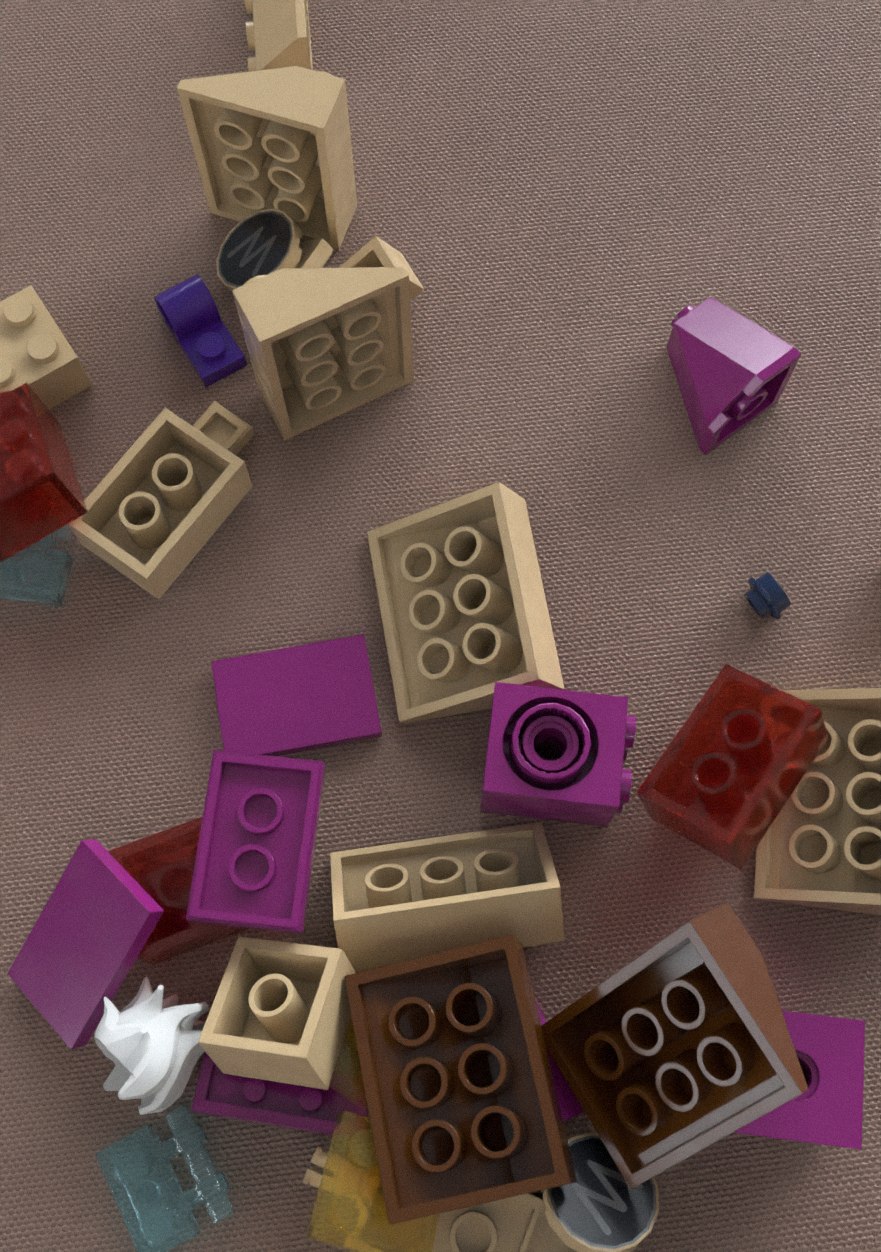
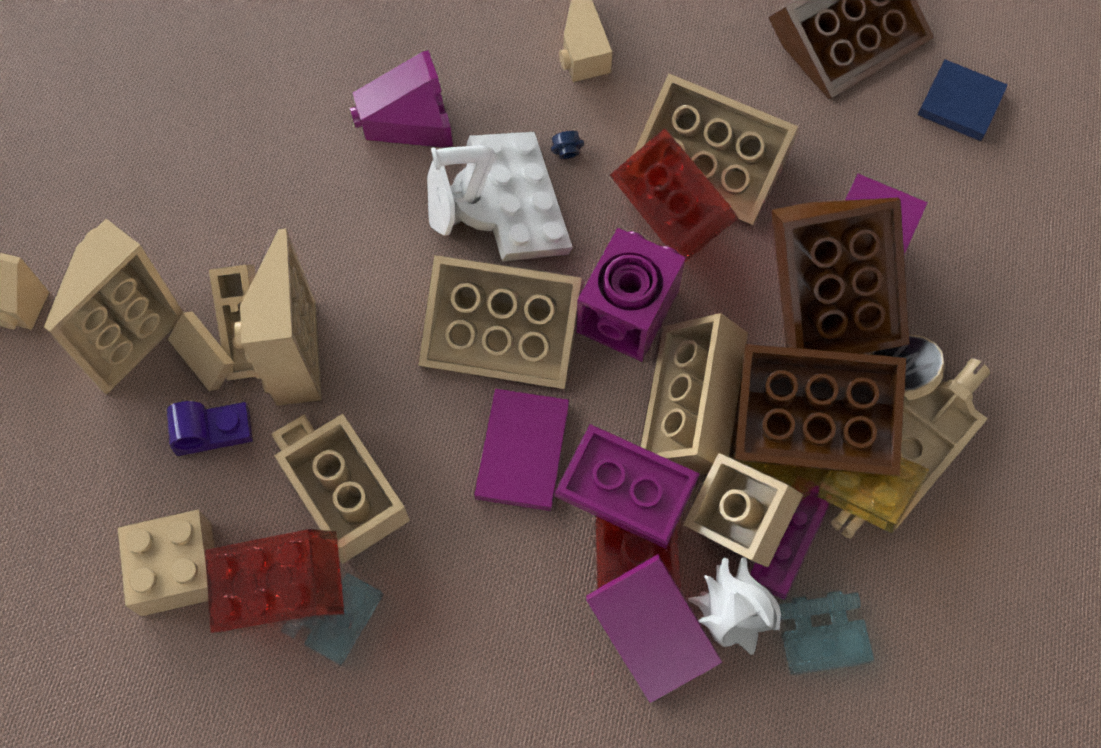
camera: 70 degrees left, 5 degrees down
(259, 247) = (168, 362): black tile -> none
(656, 550) = (499, 192): none -> white plate

